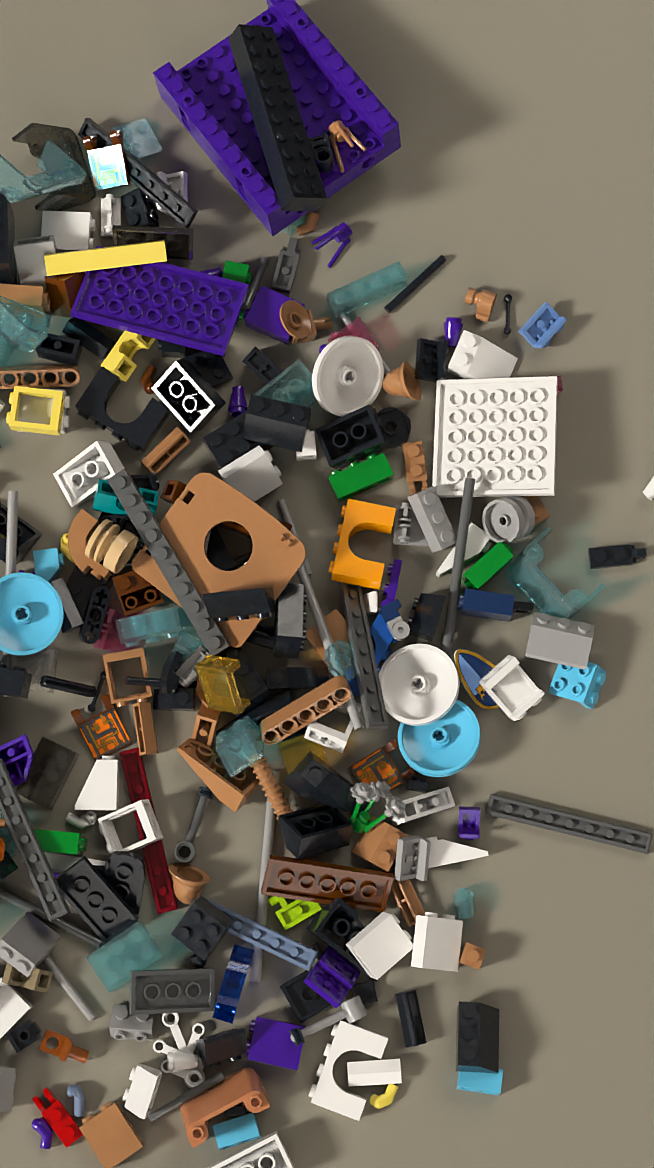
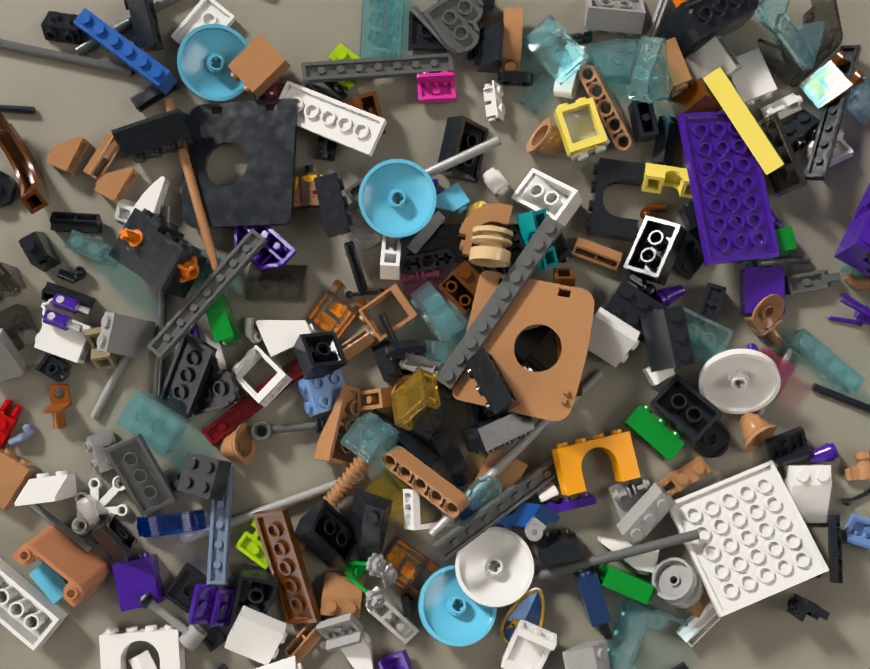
camera: 70 degrees right, 5 degrees up
(31, 448) = (545, 139): none -> medium nougat piece
(50, 515) = (495, 182): none -> white brick
(75, 649) = (390, 258): none -> white slope
(136, 760) = (319, 354): none -> black slope
(173, 777) = (321, 393): none -> medium blue bracket
(215, 423) = (641, 284): none -> black axle
(542, 362) = (834, 549): none -> black plate
(559, 517) = (699, 626): none -> white piece
(581, 416) = (800, 607): none -> black bracket

